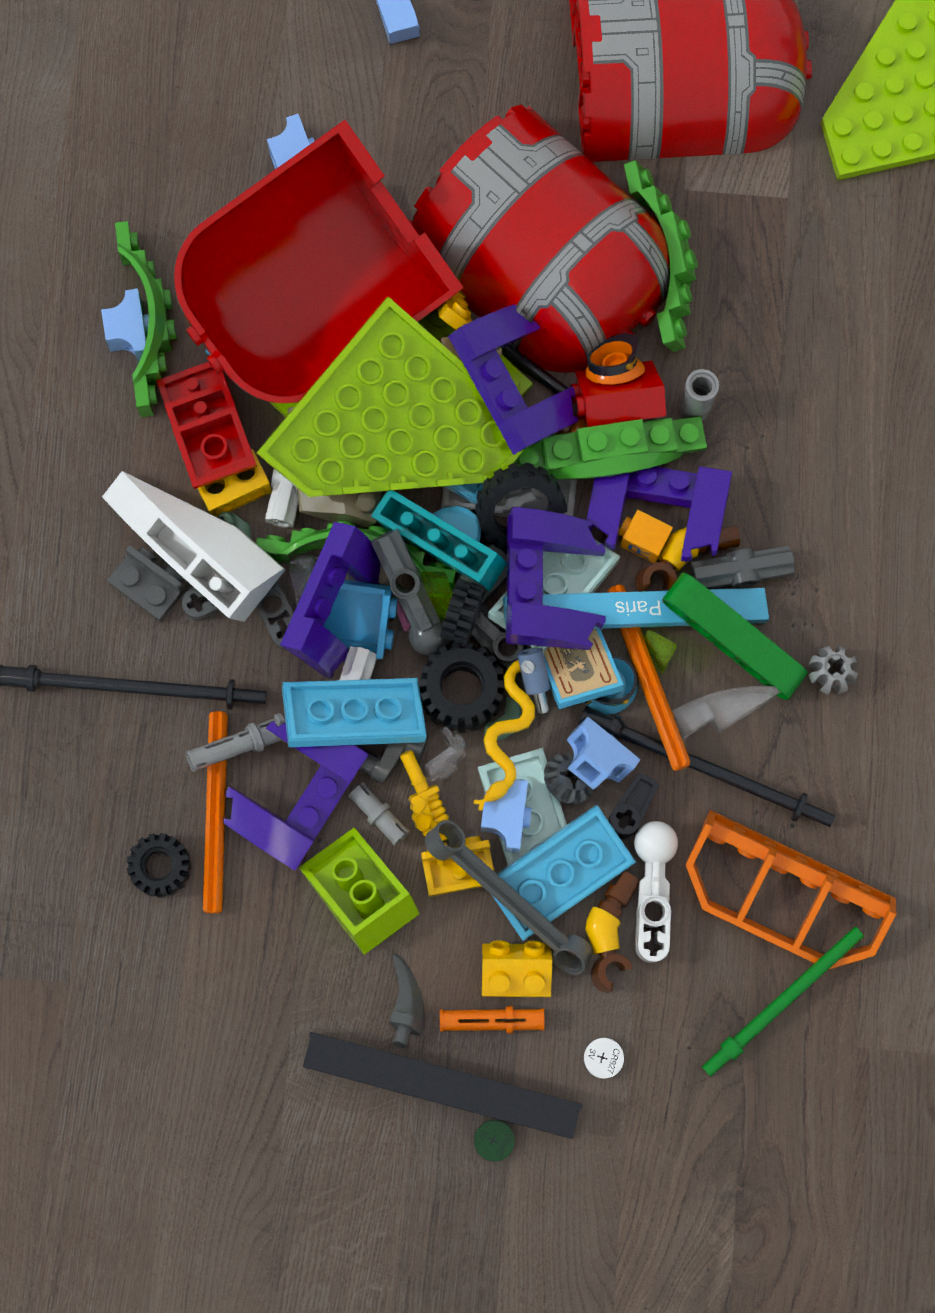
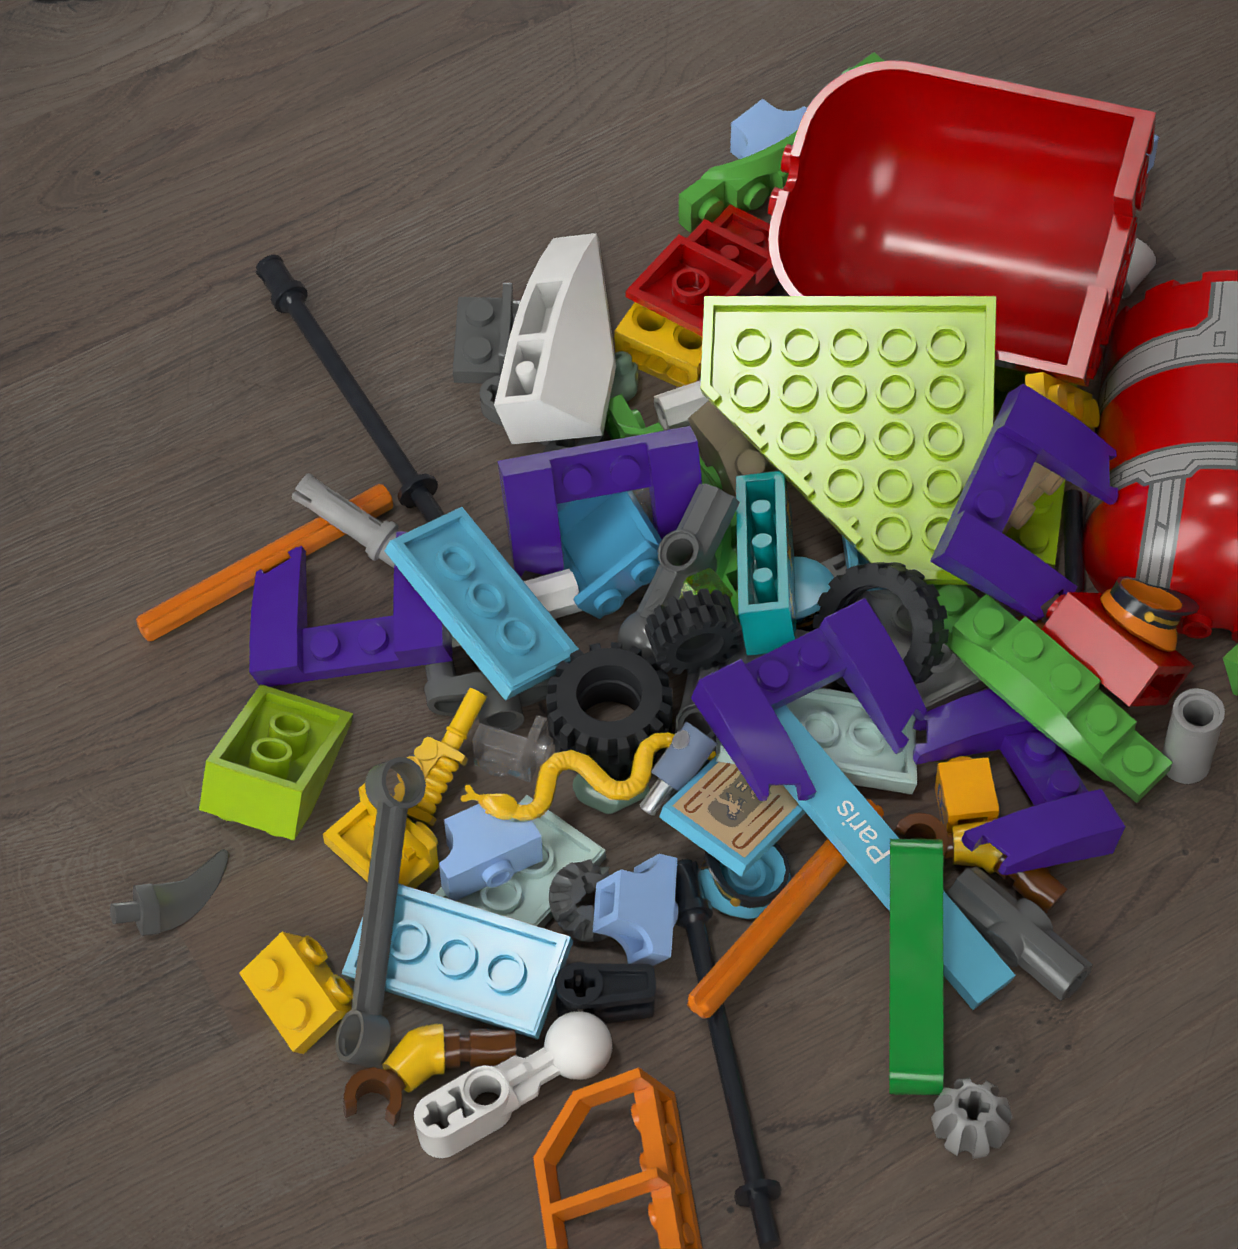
camera: 60 degrees right, 20 degrees down
(141, 853) = (156, 520): black tyre -> none
(379, 814) = (388, 722): light grey pin -> none
(442, 1085) = (94, 999): black tile -> none
(450, 1020) = (246, 1045): orange pin -> none
(494, 1140) = (63, 1101): dark green piece -> none
(603, 1058) = (256, 1164): white piece -> none
(660, 649) = (834, 904): clear neon green slope -> none
(721, 708) = (814, 1019): clear slope -> none

